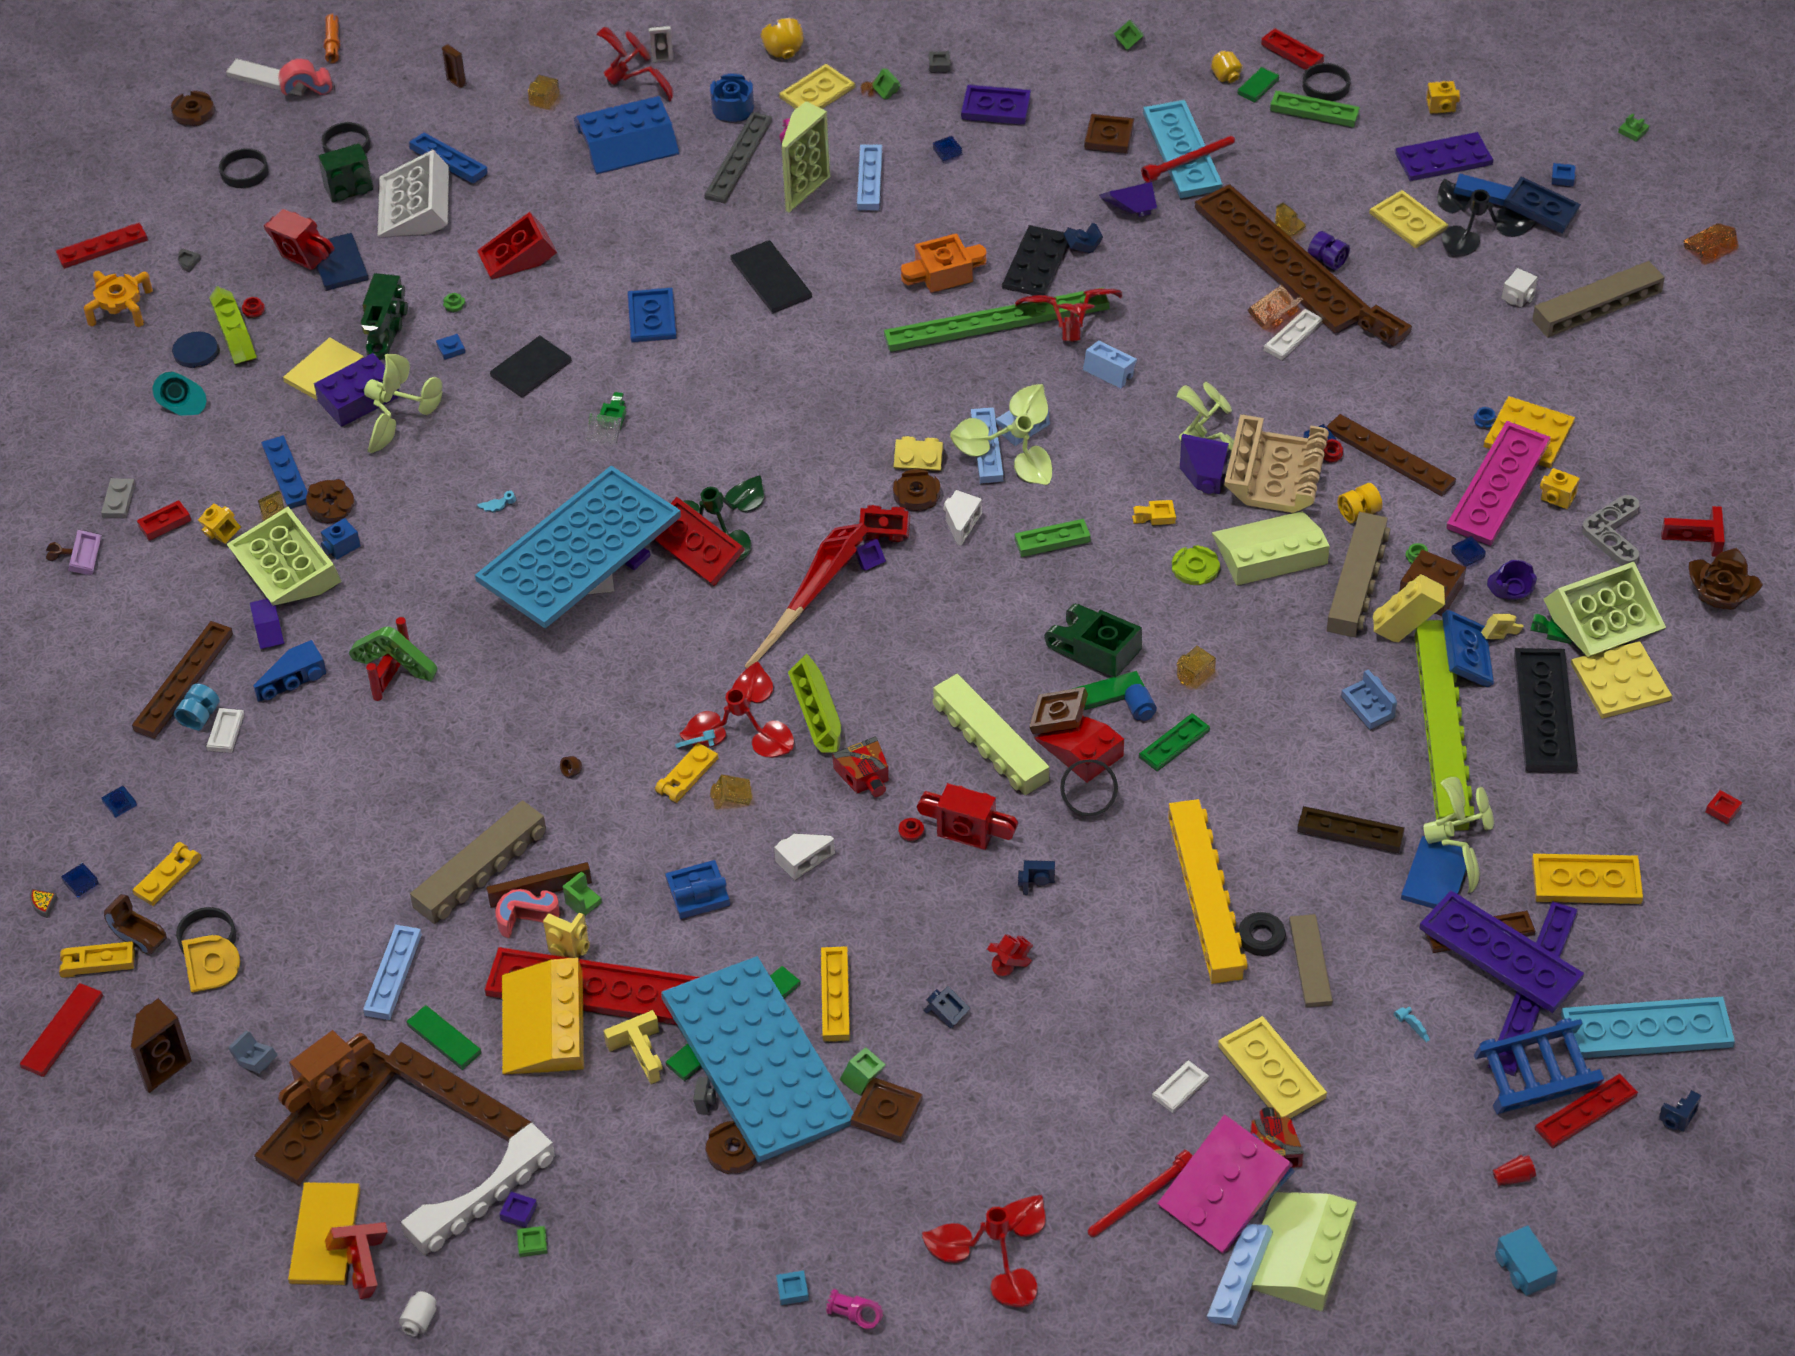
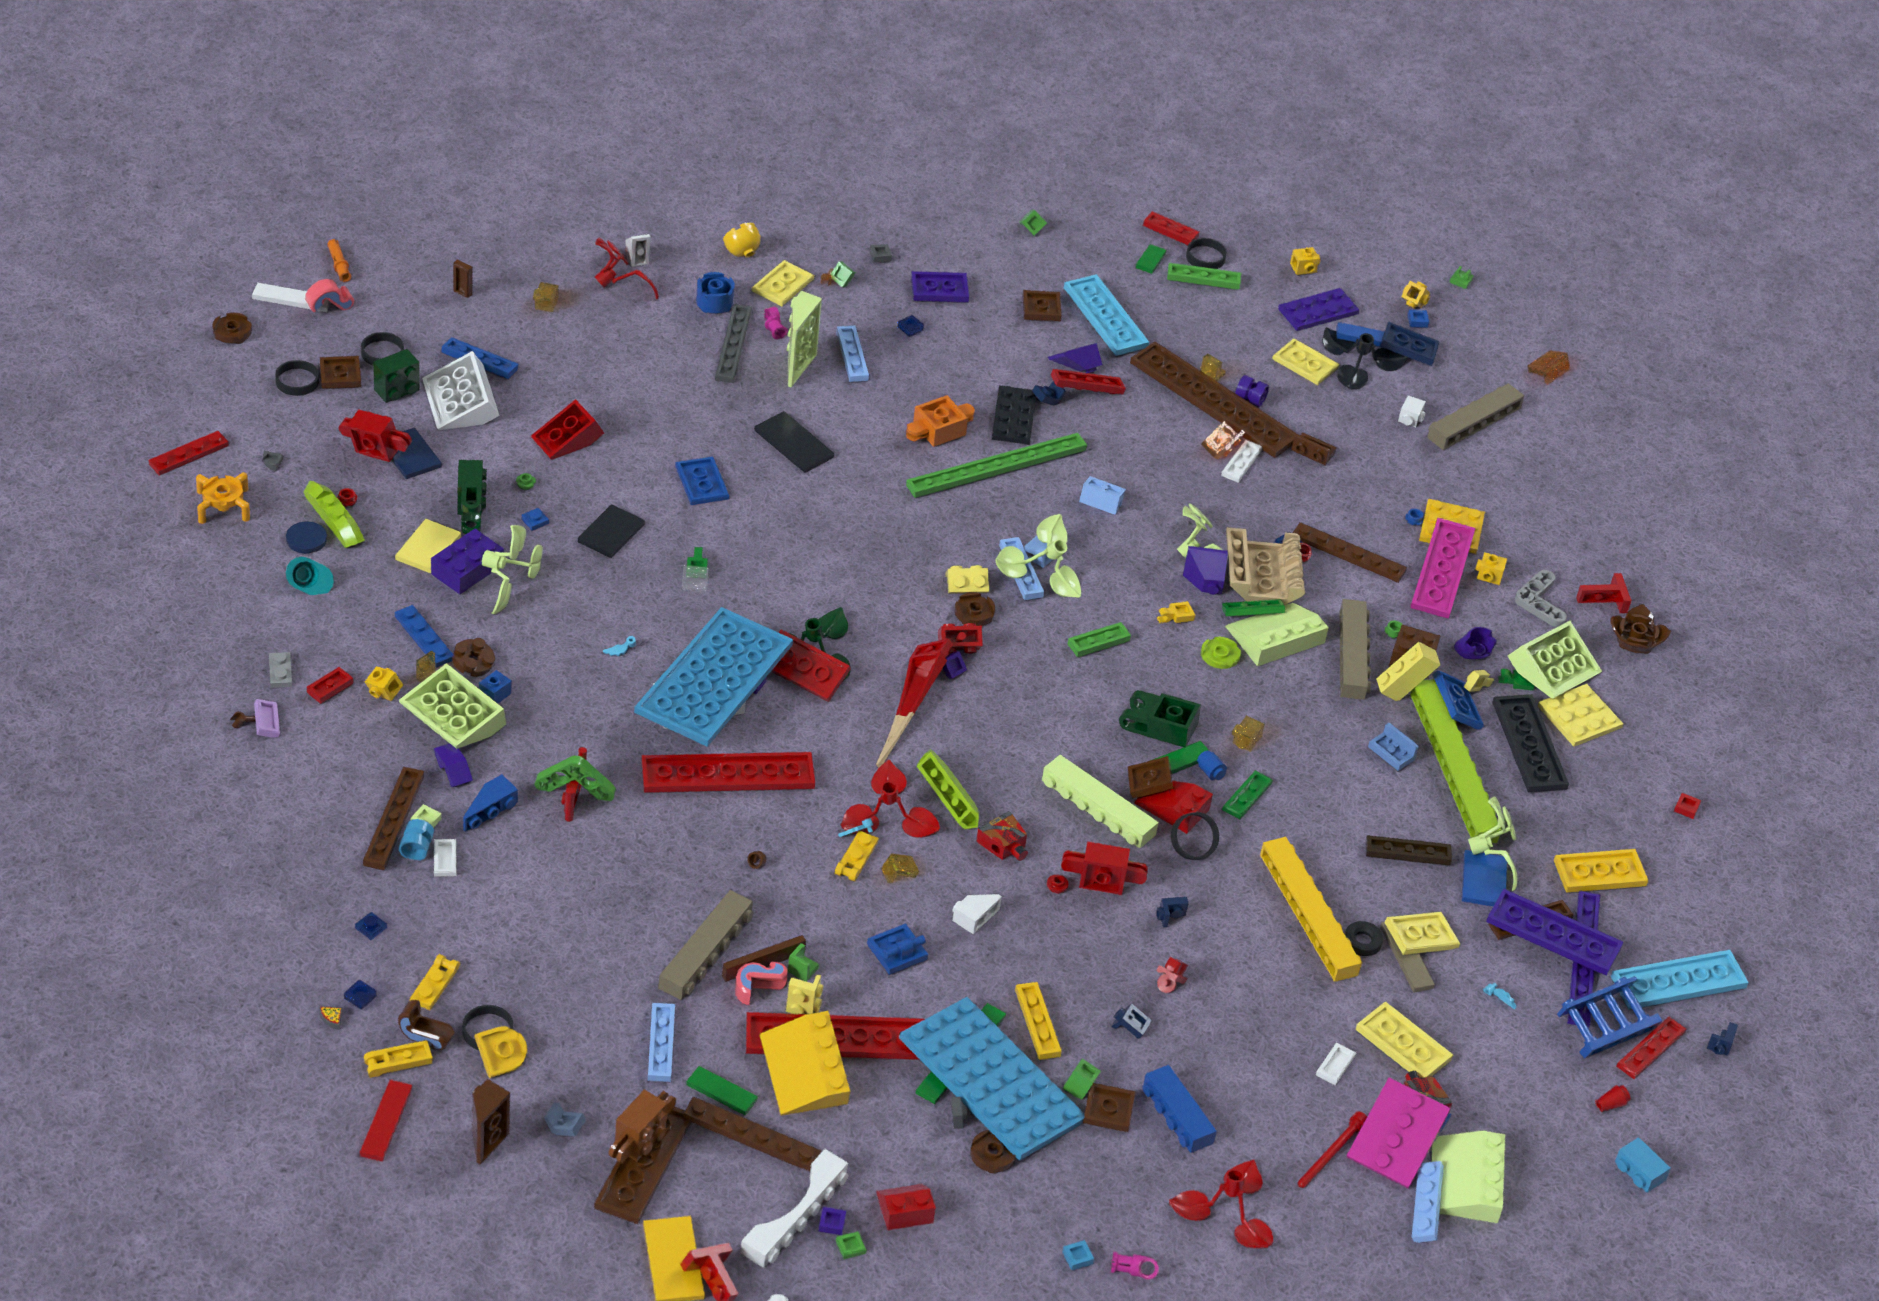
camera: 20 degrees left, 5 degrees down
(218, 681) = (428, 814): none -> yellowish green plate
(291, 164) = (340, 372): none -> reddish brown plate
(570, 659) = (727, 772): none -> red plate
(608, 1202) = (907, 1206): none -> red slope
(627, 134) = (633, 329): blue slope -> none
(636, 1034) = (886, 1071): light yellow bracket -> none
(962, 514) = (1019, 626): white slope -> none
(969, 1122) = (1179, 1109): none -> blue brick
(1071, 325) = (1062, 465): red plant -> none
(1132, 227) = (1088, 381): none -> red plate
(1151, 172) = (1089, 335): red piece -> none
(1226, 66) = (1122, 245): yellow head -> none
(1250, 513) = (1253, 607): none -> green tile
(1335, 934) = (1422, 933): none -> light yellow tile
(1364, 499) = (1339, 589): yellow wheel -> none
(1468, 551) = (1434, 623): clear blue plate -> none
(1566, 145) = (1413, 289): none -> yellow brick

